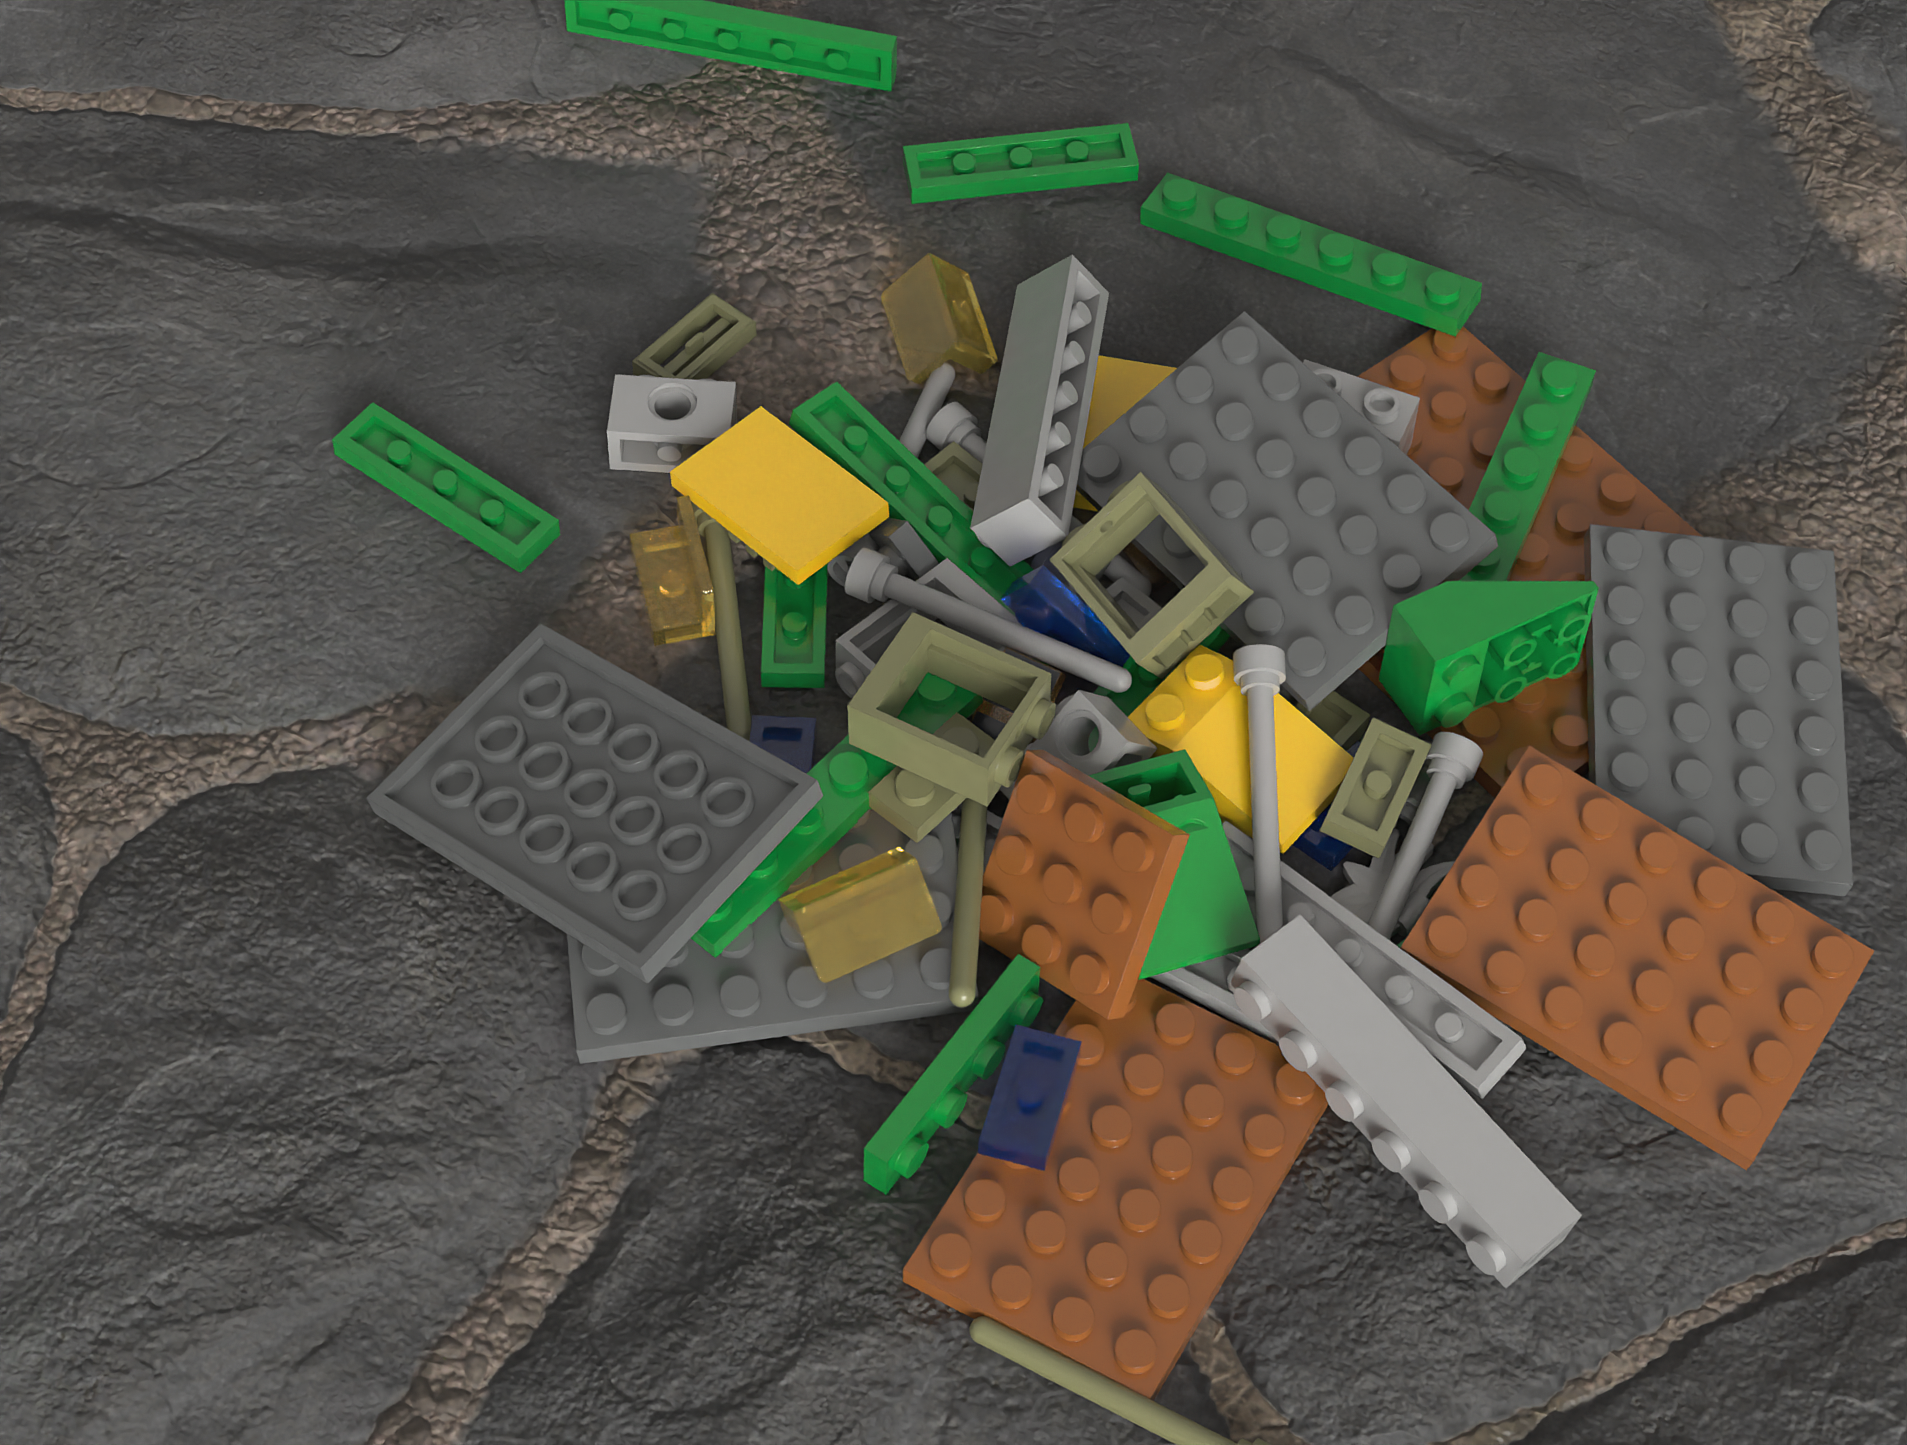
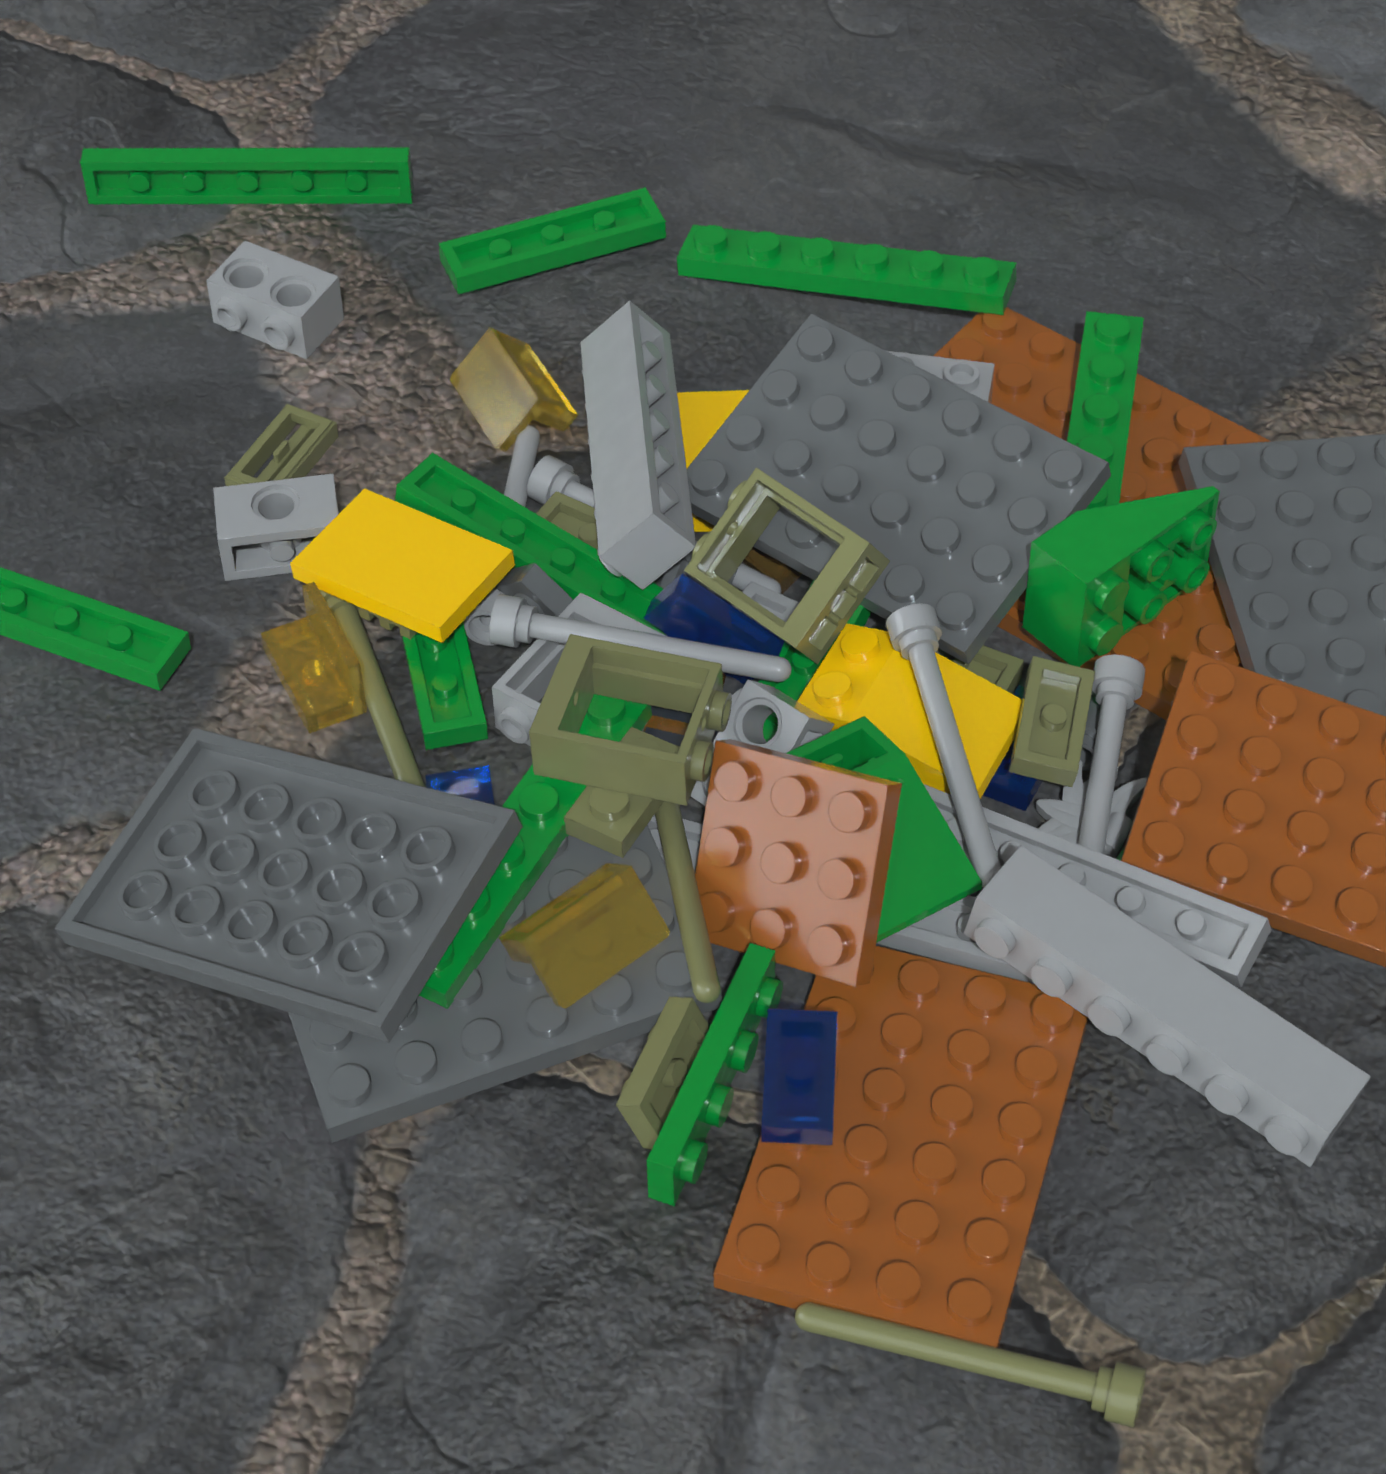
camera: 10 degrees left, 5 degrees down
(725, 177) = (275, 299): none -> light grey brick
(904, 1058) = (662, 1068): none -> olive plate

